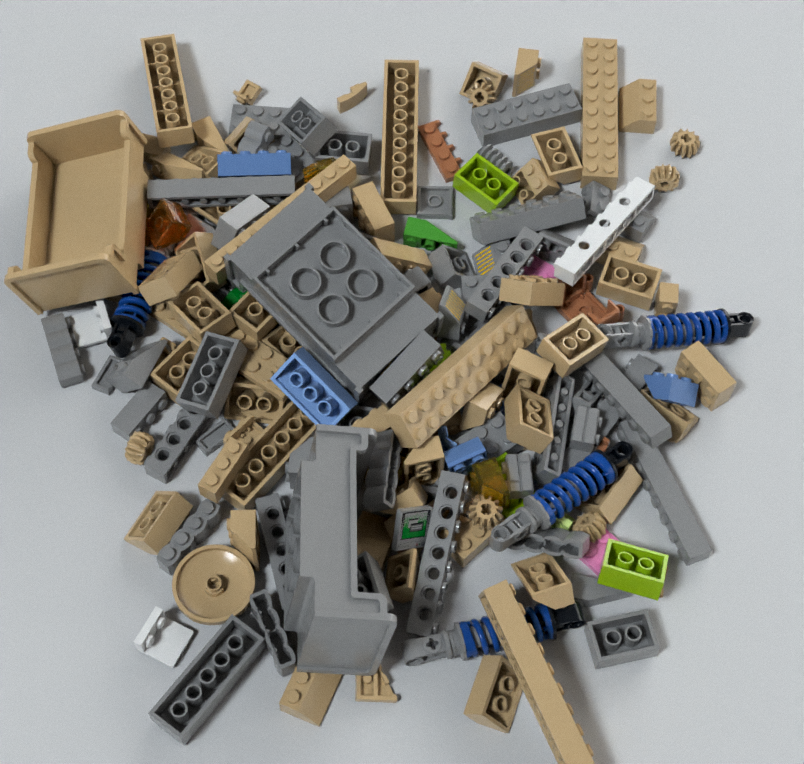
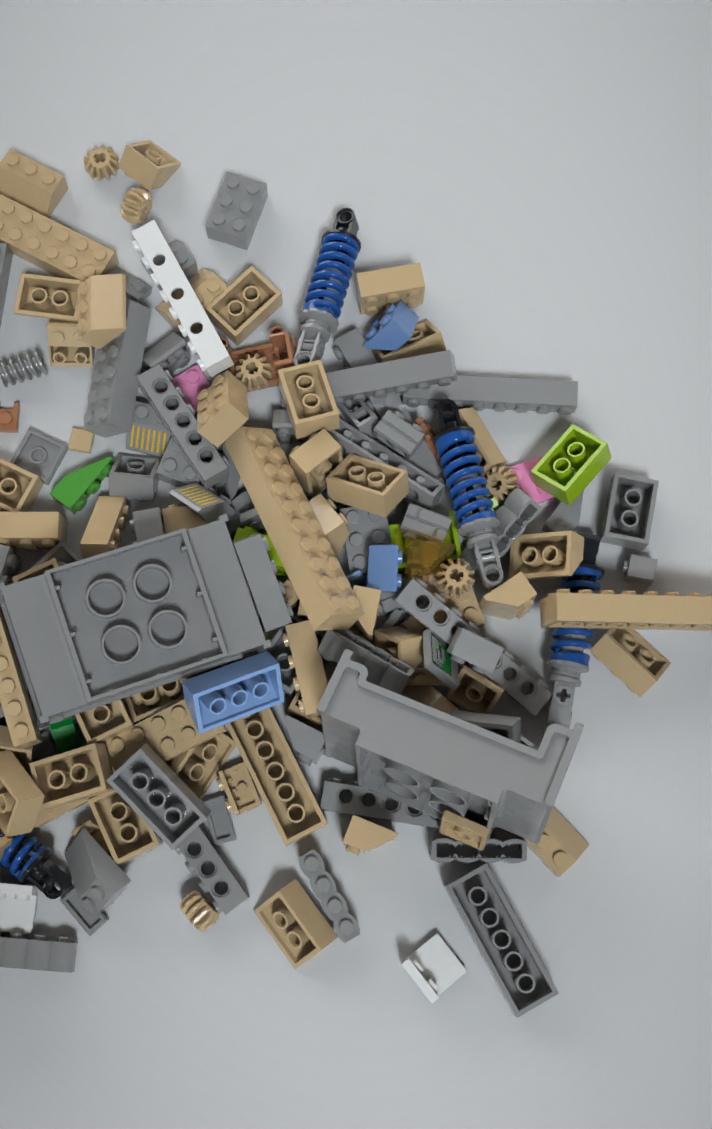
camera: 65 degrees left, 15 degrees up
(139, 410) = (152, 893): light grey brick -> none
(213, 584) = (397, 892): tan dish -> none
(223, 470) = (280, 829): tan brick -> none
(280, 602) = (464, 830): none -> tan tile
(374, 688) = (578, 774): tan wing -> none
(432, 549) = (475, 650): none -> light grey brick
(461, 223) = (81, 441): none -> tan tile
(485, 184) = (49, 392): lime brick -> none
(491, 563) = (509, 599): none -> tan slope
(564, 182) = (101, 309): none -> tan slope
(575, 305) = (259, 377): none -> tan gear
(575, 670) = (639, 569): none -> light grey brick
(666, 299) = (289, 281): tan brick -> none
(703, 173) = (148, 164): none -> tan slope
(704, 245) = (236, 210): none -> light grey brick

